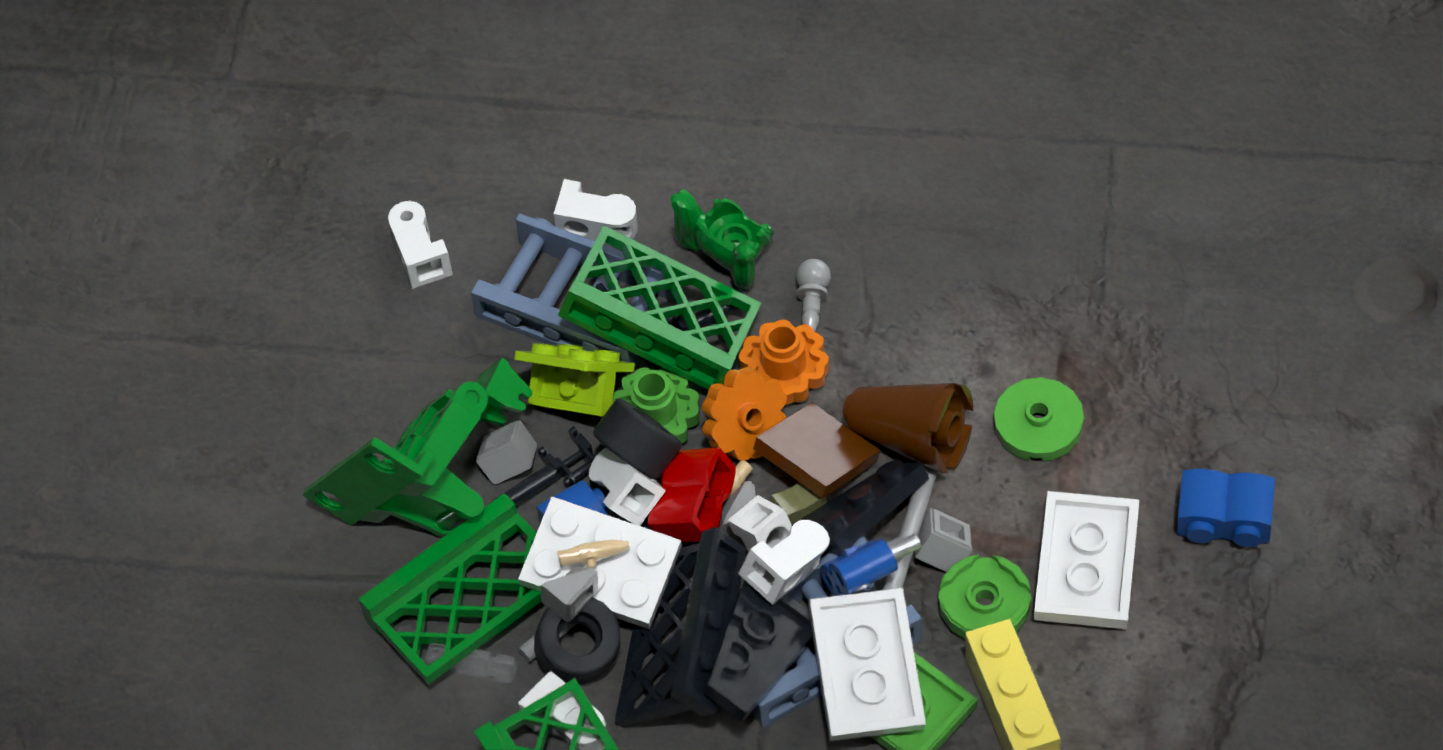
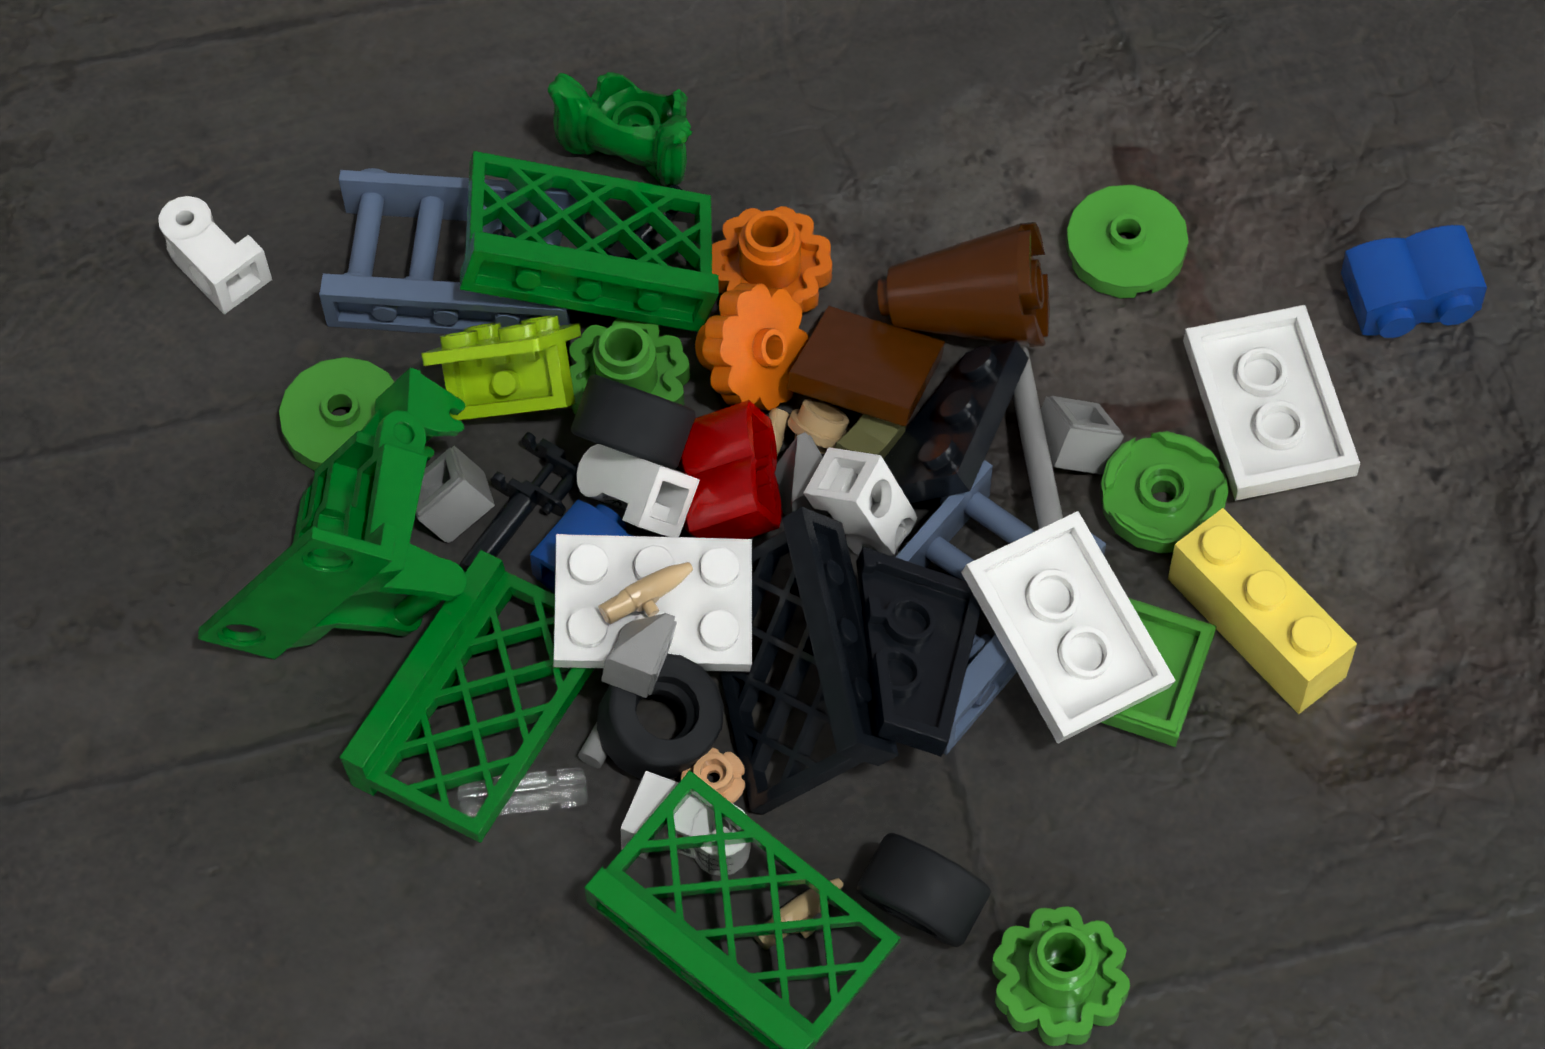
camera: 25 degrees left, 5 degrees up
(447, 359) = (319, 390): none -> bright green plate
(587, 213) = (436, 143): white leg -> none
(611, 688) = (729, 769): none -> light nougat plate
(768, 479) = (821, 421): none -> tan plate
(788, 563) = (903, 534): white leg -> none
(813, 278) = (761, 146): light grey bar -> none
(865, 564) = (1012, 496): blue piece -> none

